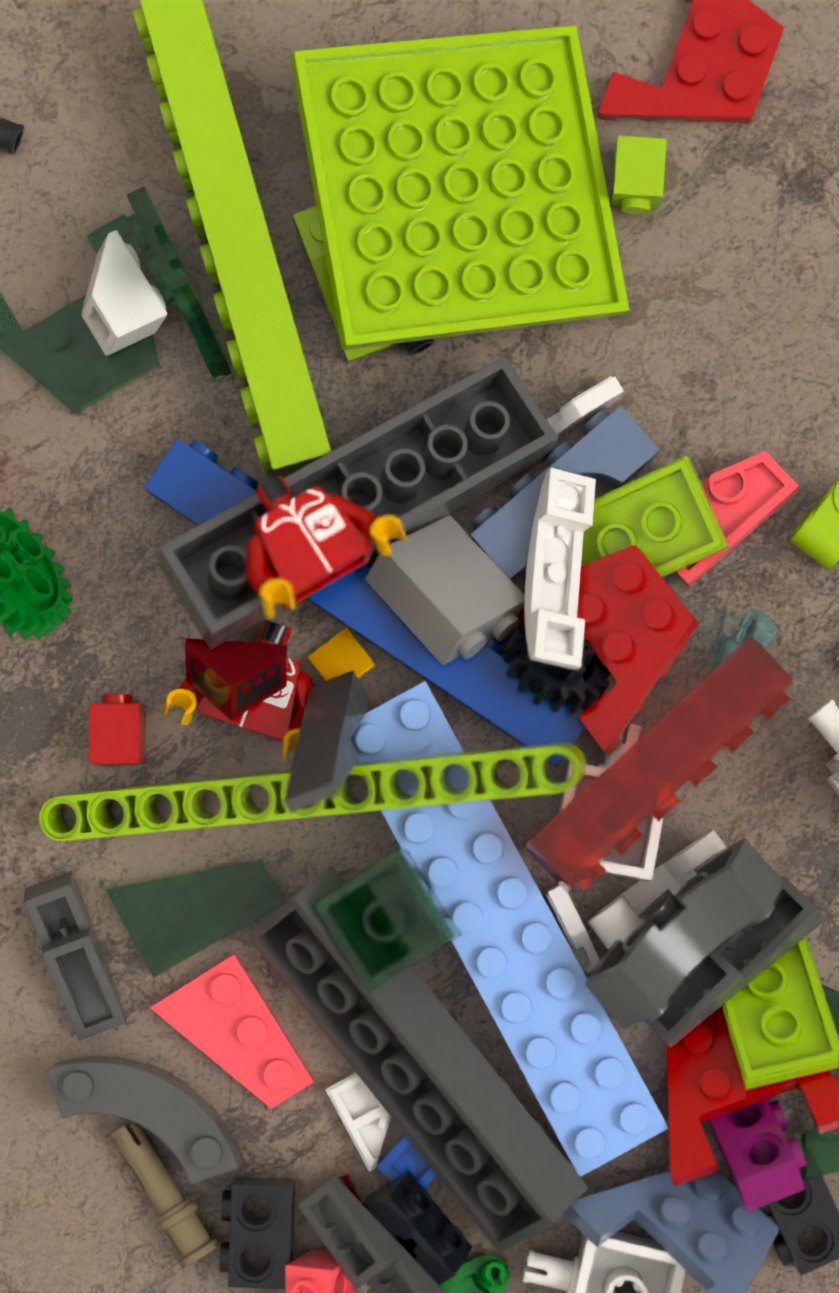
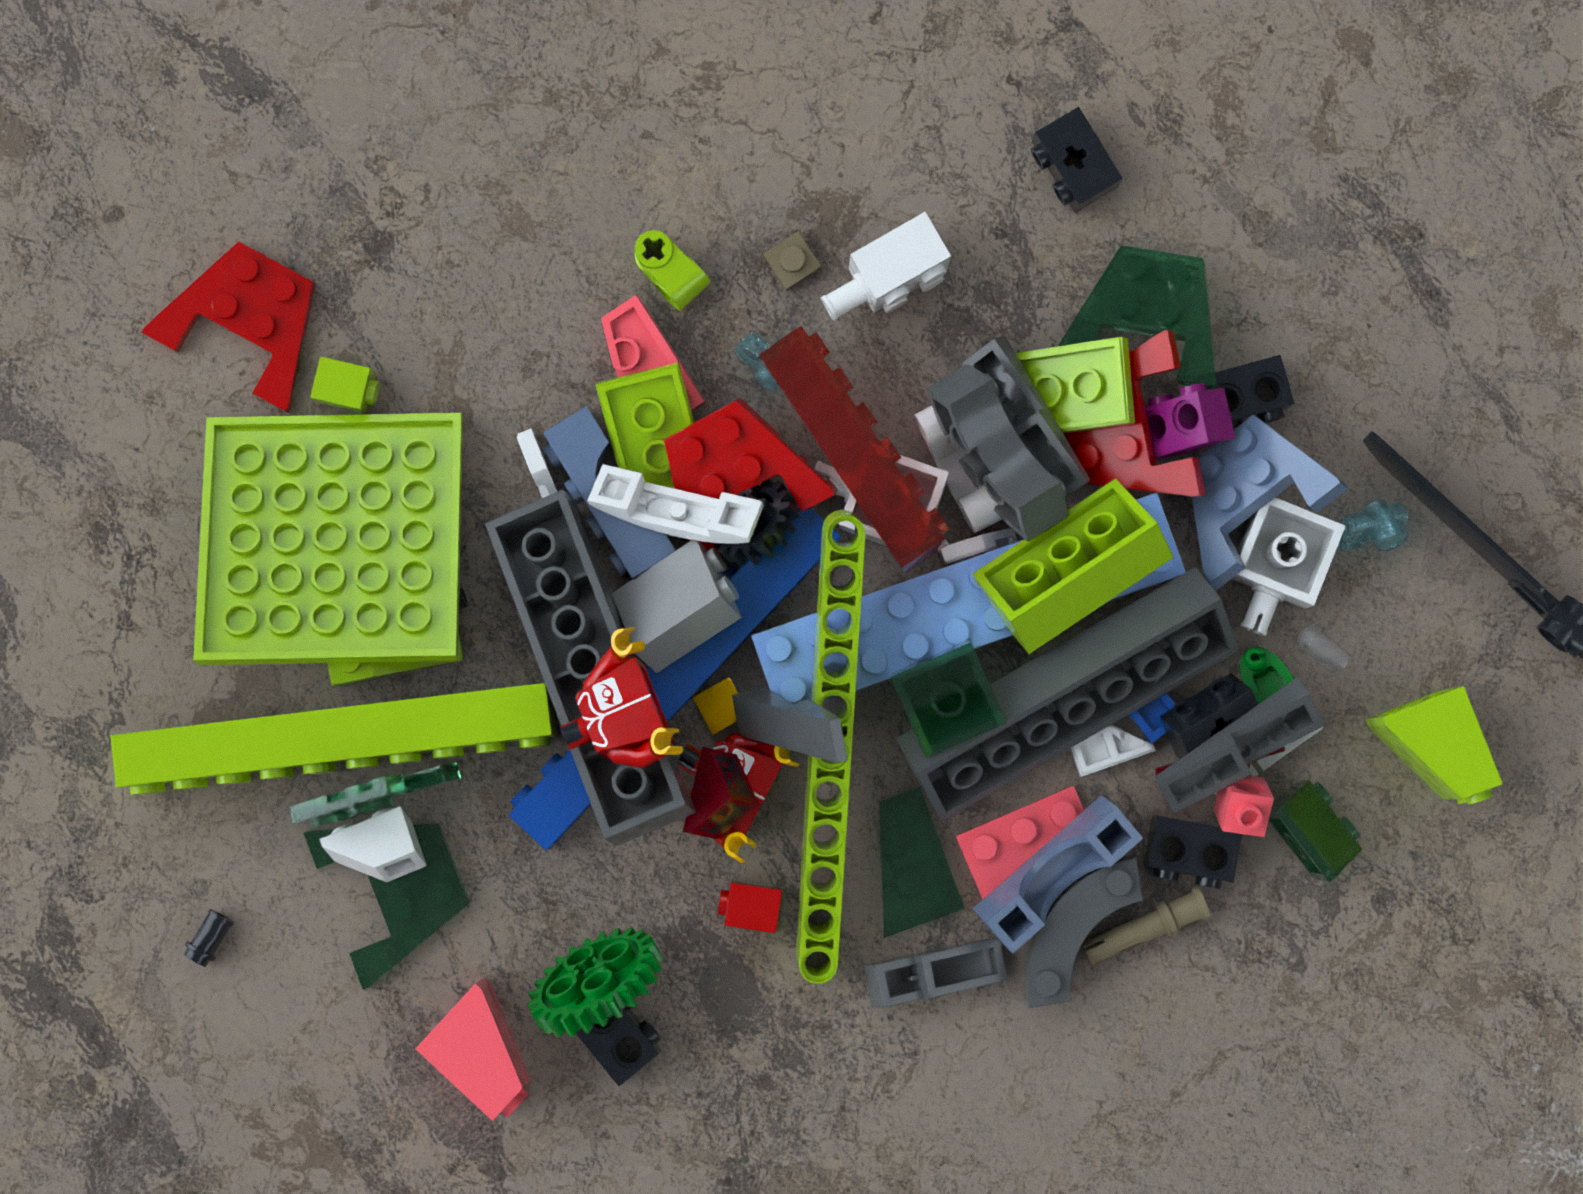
camera: 85 degrees left, 0 degrees up
(169, 1043) = (1087, 843): none -> sand blue arch
(565, 1044) = (1074, 566): none -> lime slope

